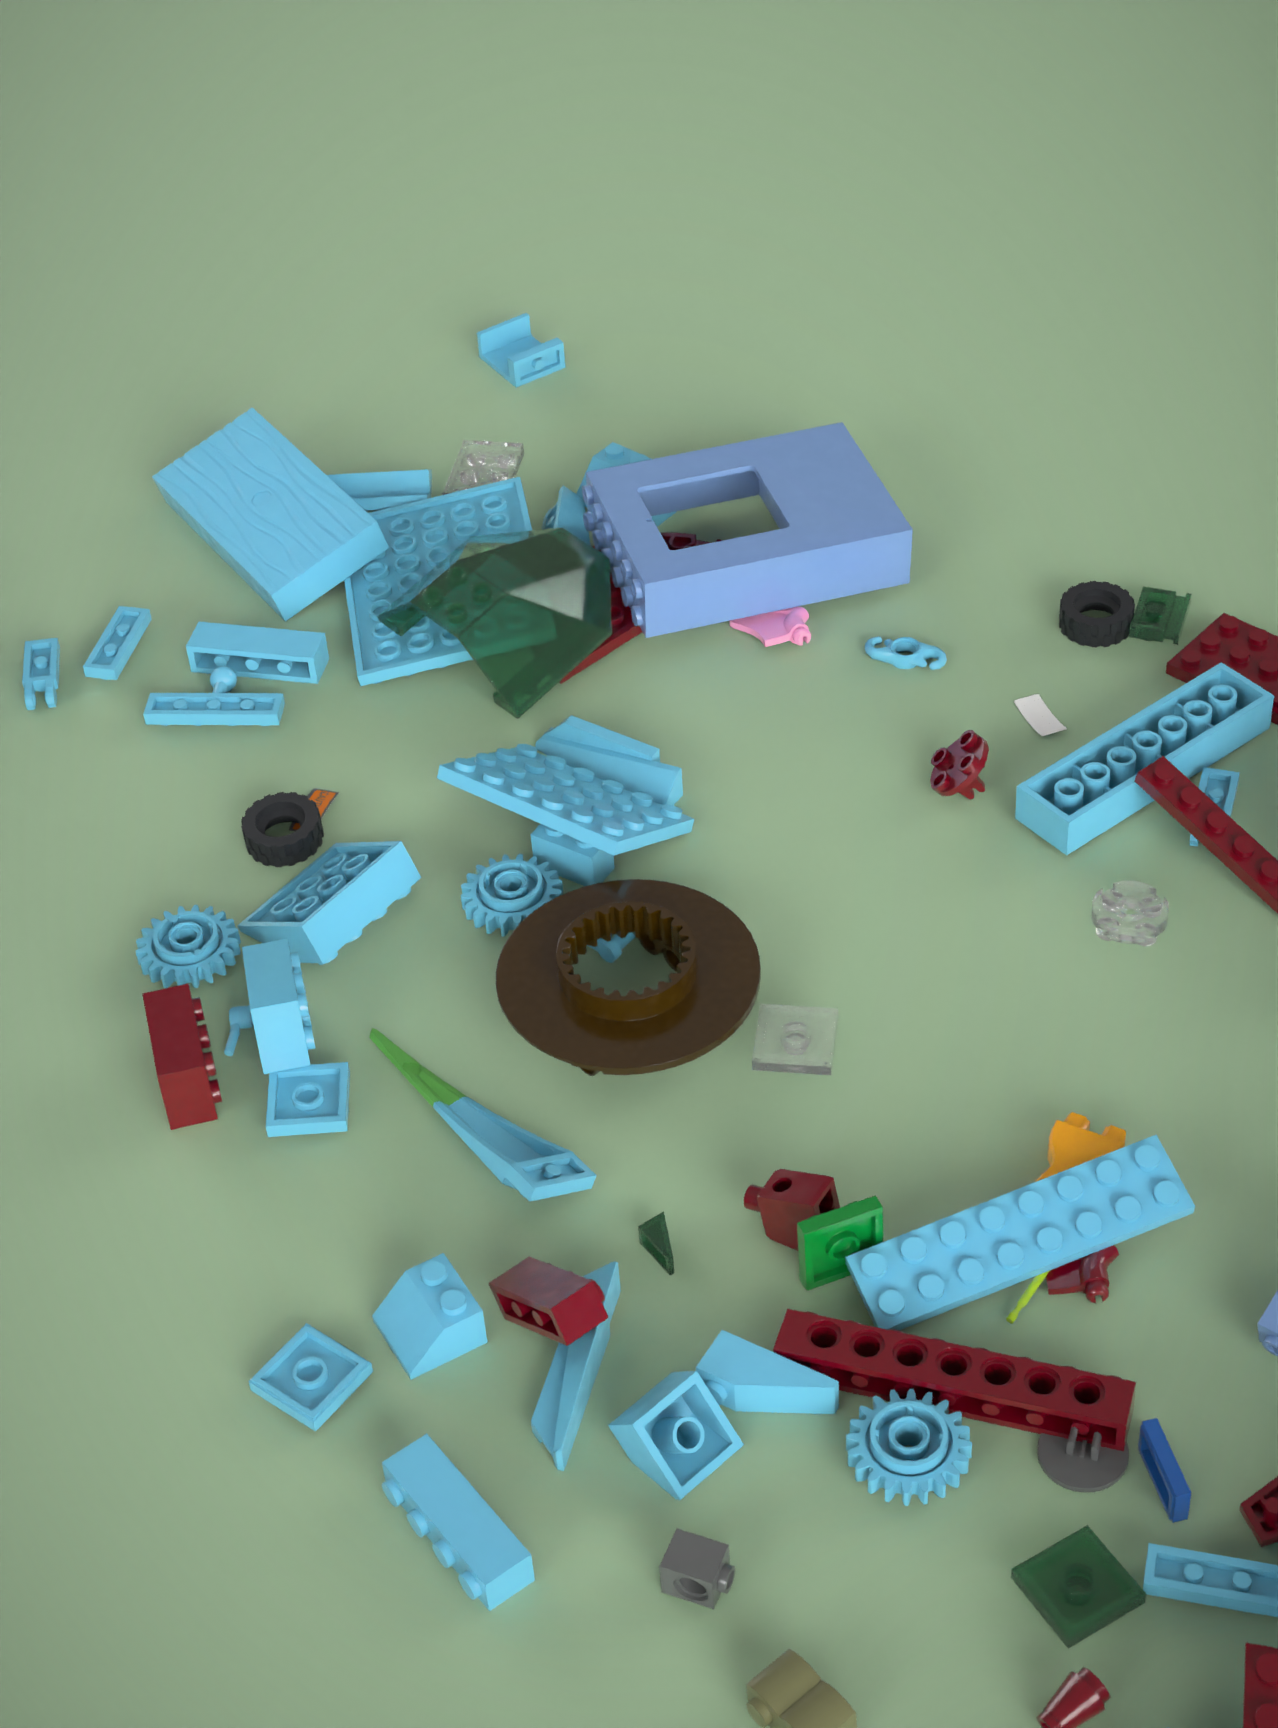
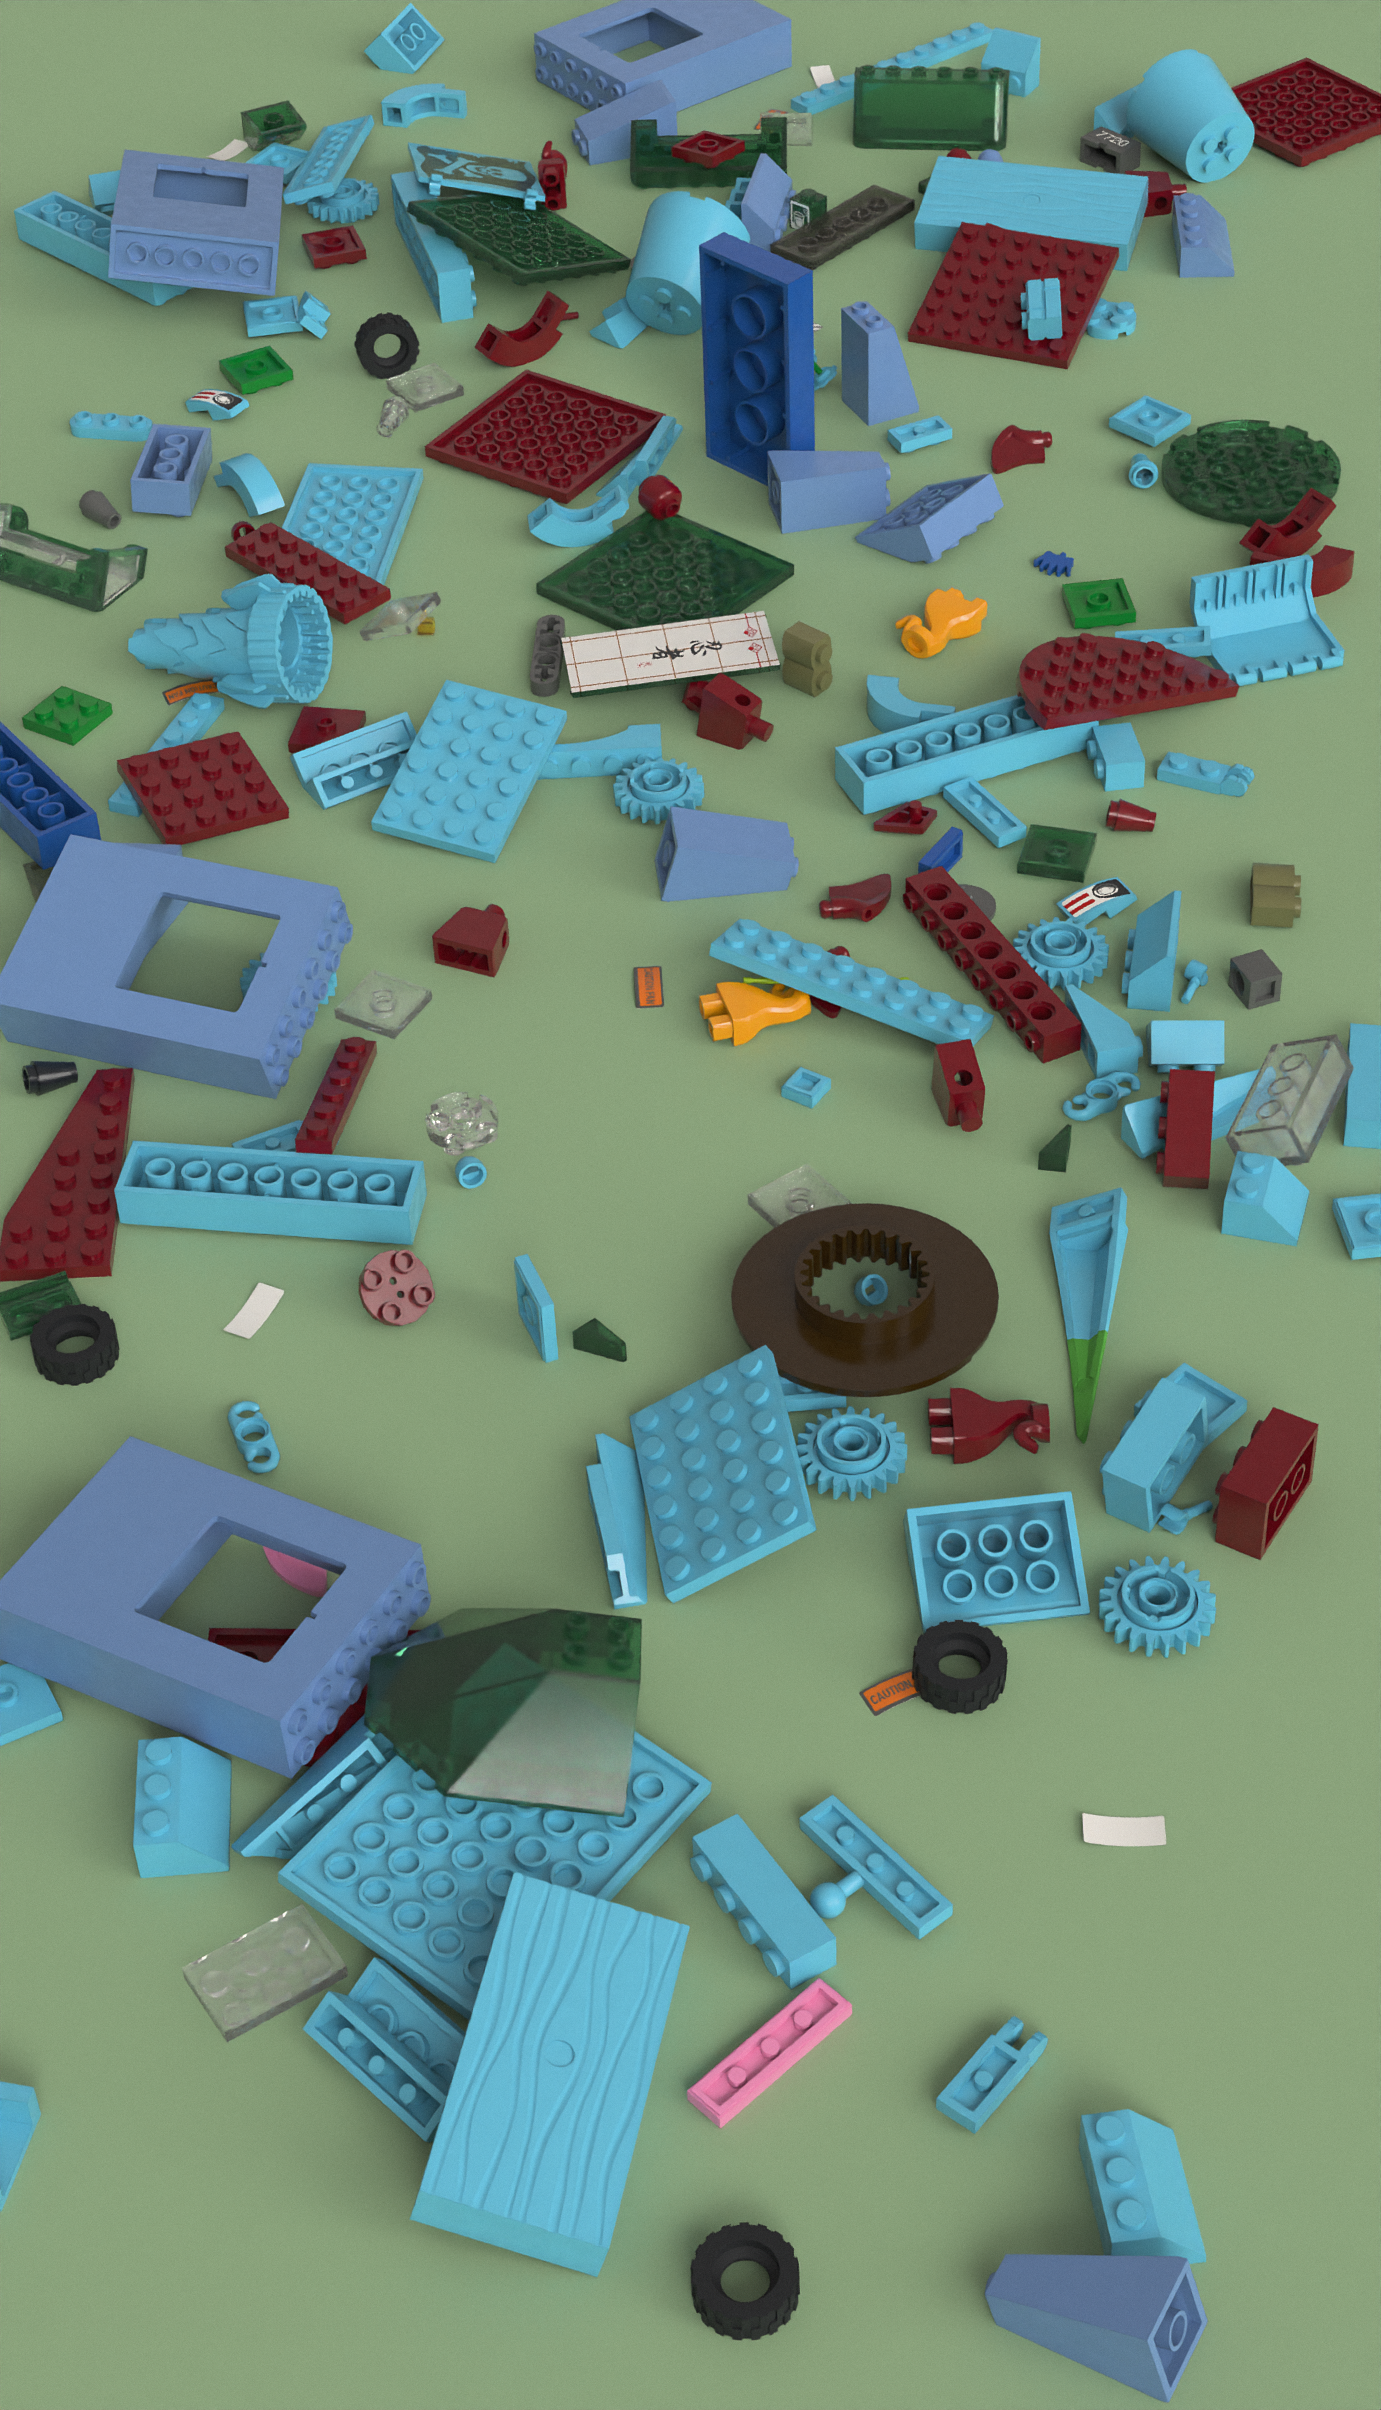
camera: 135 degrees left, 0 degrees up
(80, 516) = (750, 2318): none -> black tyre
(89, 832) = (1124, 1830): none -> white sticker
(117, 643) = (877, 2048): medium azure plate -> none
(179, 613) = (769, 2052): none -> bright pink tile
(446, 972) = (983, 1424): none -> dark red hips
(493, 1408) = (1292, 1100): none -> clear brick
(684, 1314) = (1097, 1106): none -> medium azure piece
(763, 1542) = (1197, 975): none -> medium azure hand
(784, 849) = (599, 1340): none -> clear green piece
(809, 1503) = (1153, 955): none -> medium azure slope
(833, 1236) = (950, 1026): green plate -> none
(841, 808) = (536, 1308): none -> medium azure plate
(939, 1146) = (806, 1087): none -> medium azure tile
(961, 1552) = (1104, 896): none -> slope
(1063, 885) = (470, 1172): none -> medium azure hinge
(1176, 1373) = (858, 900): none -> dark red arm
(1207, 1143) = (648, 987): none -> orange sticker

